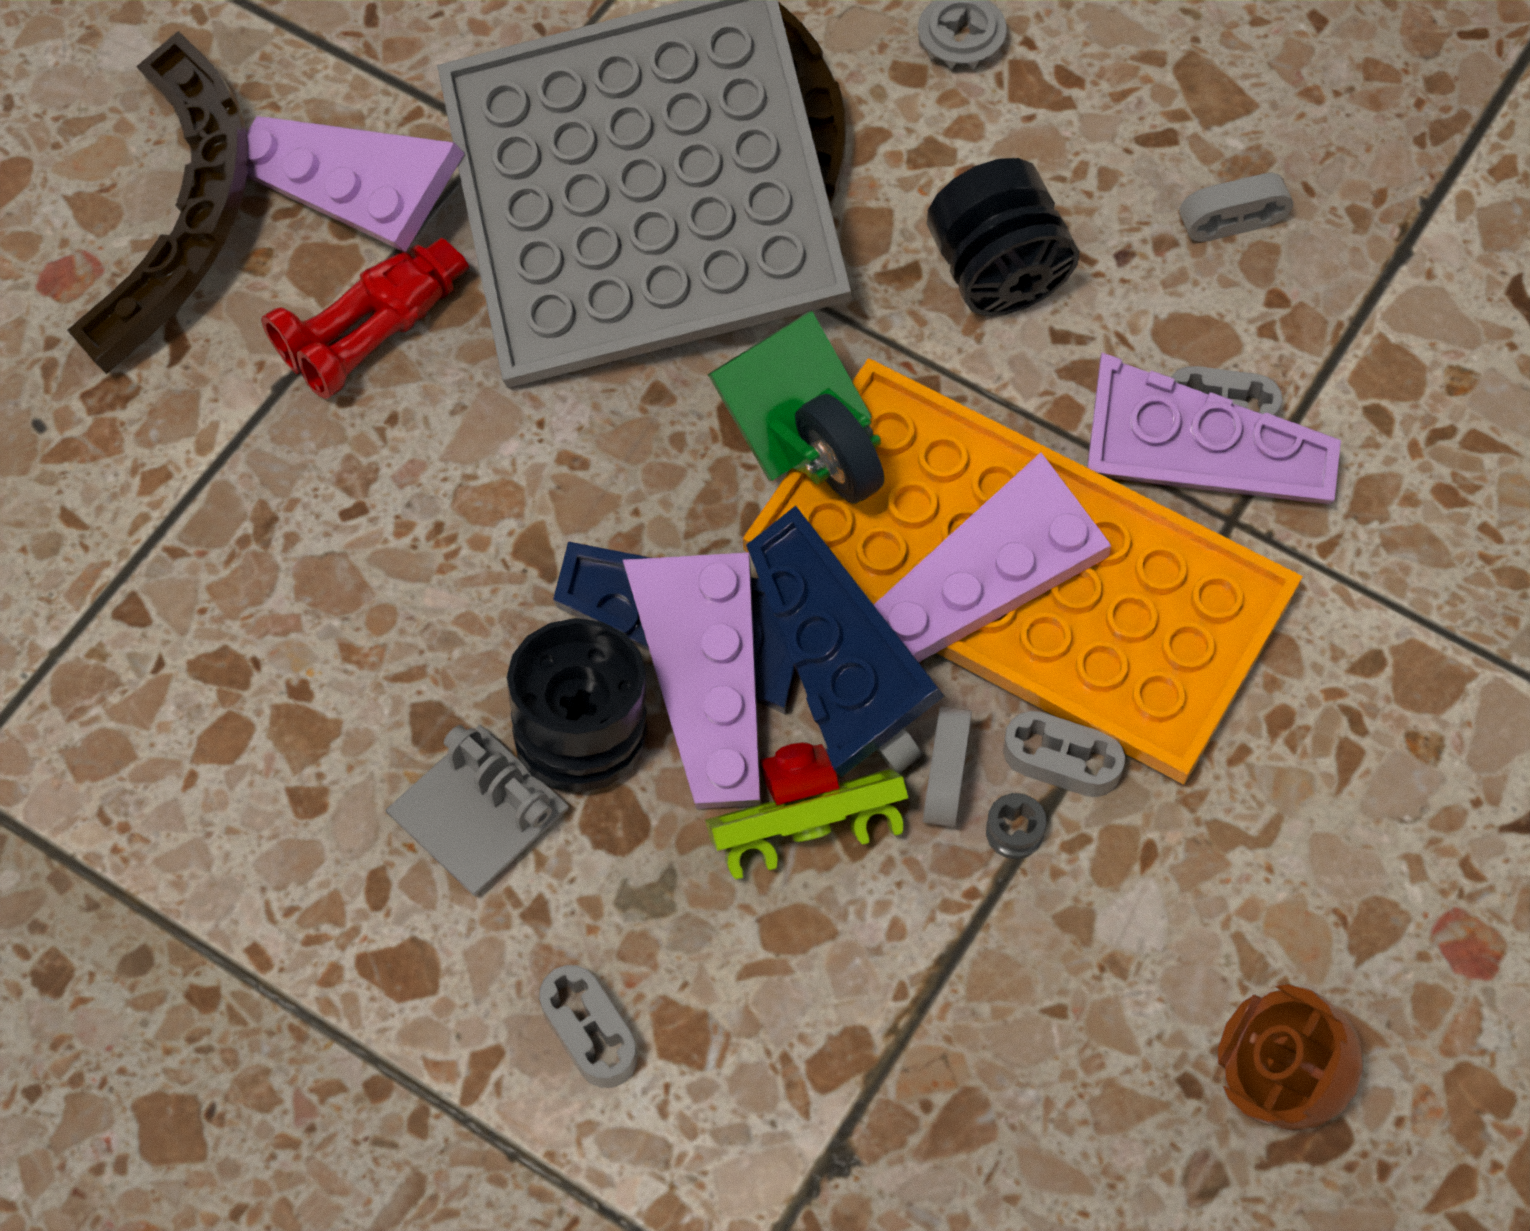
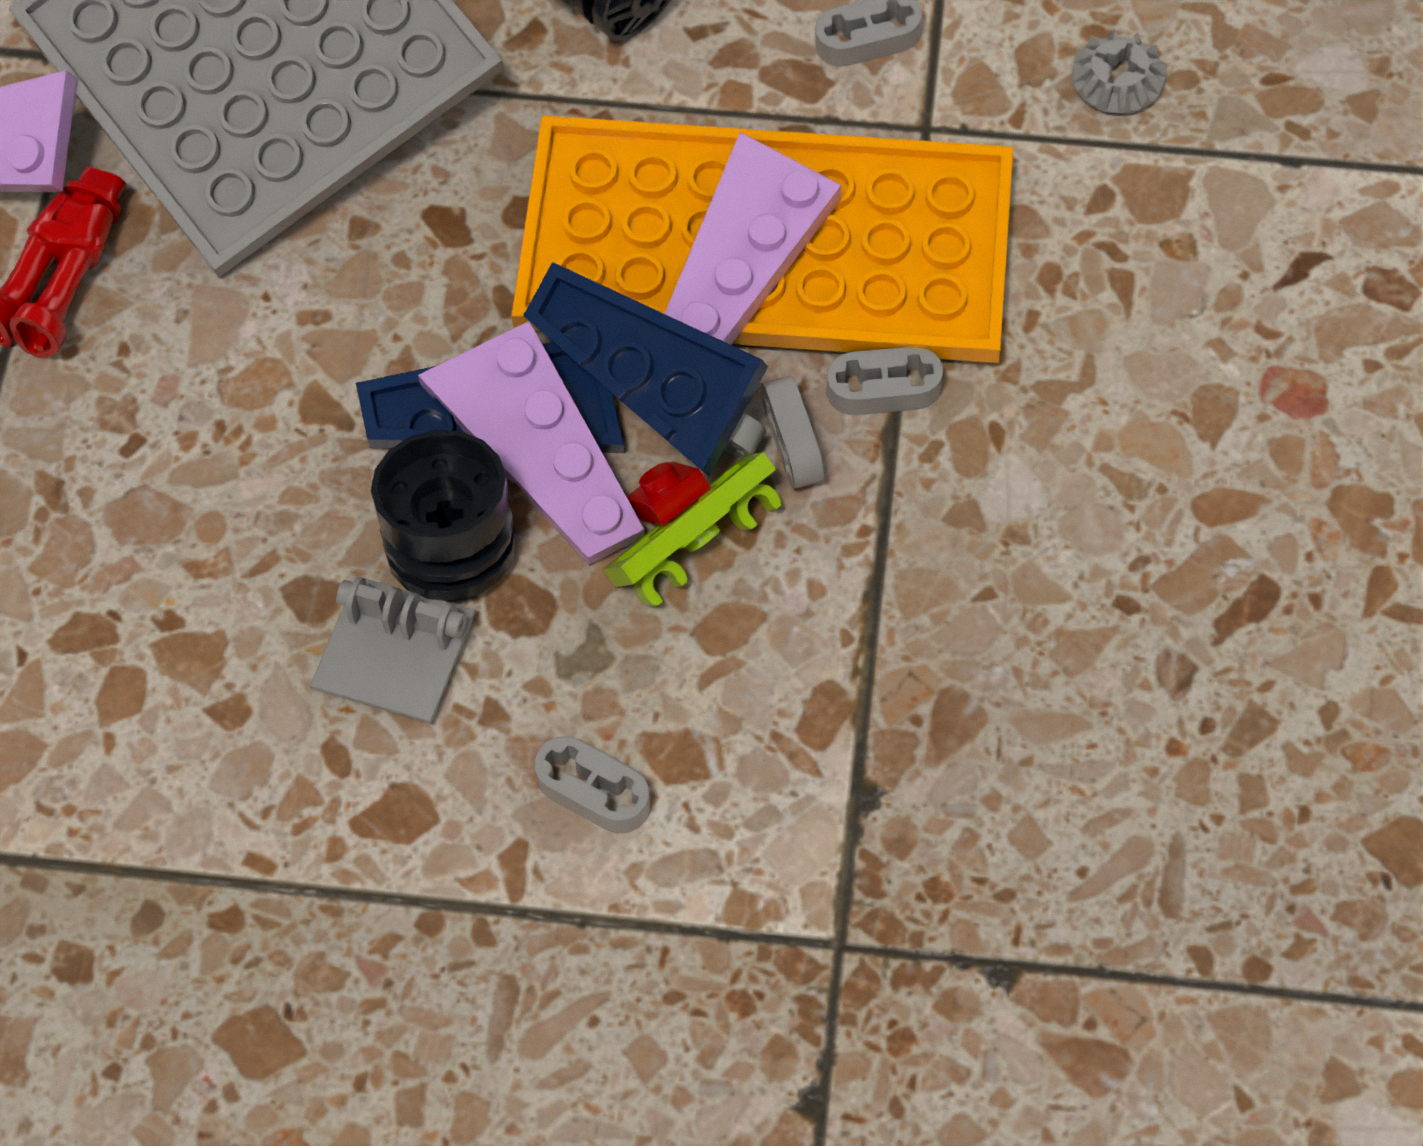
camera: 25 degrees left, 0 degrees up
(802, 410) = (515, 181): green plate -> none
(1020, 843) = (888, 467): dark grey bush -> none
(1191, 439) = (852, 73): lavender wing -> none
(1290, 1058) = (1202, 537): dark orange cylinder -> none
(1449, 567) = (1133, 88): none -> light grey gear

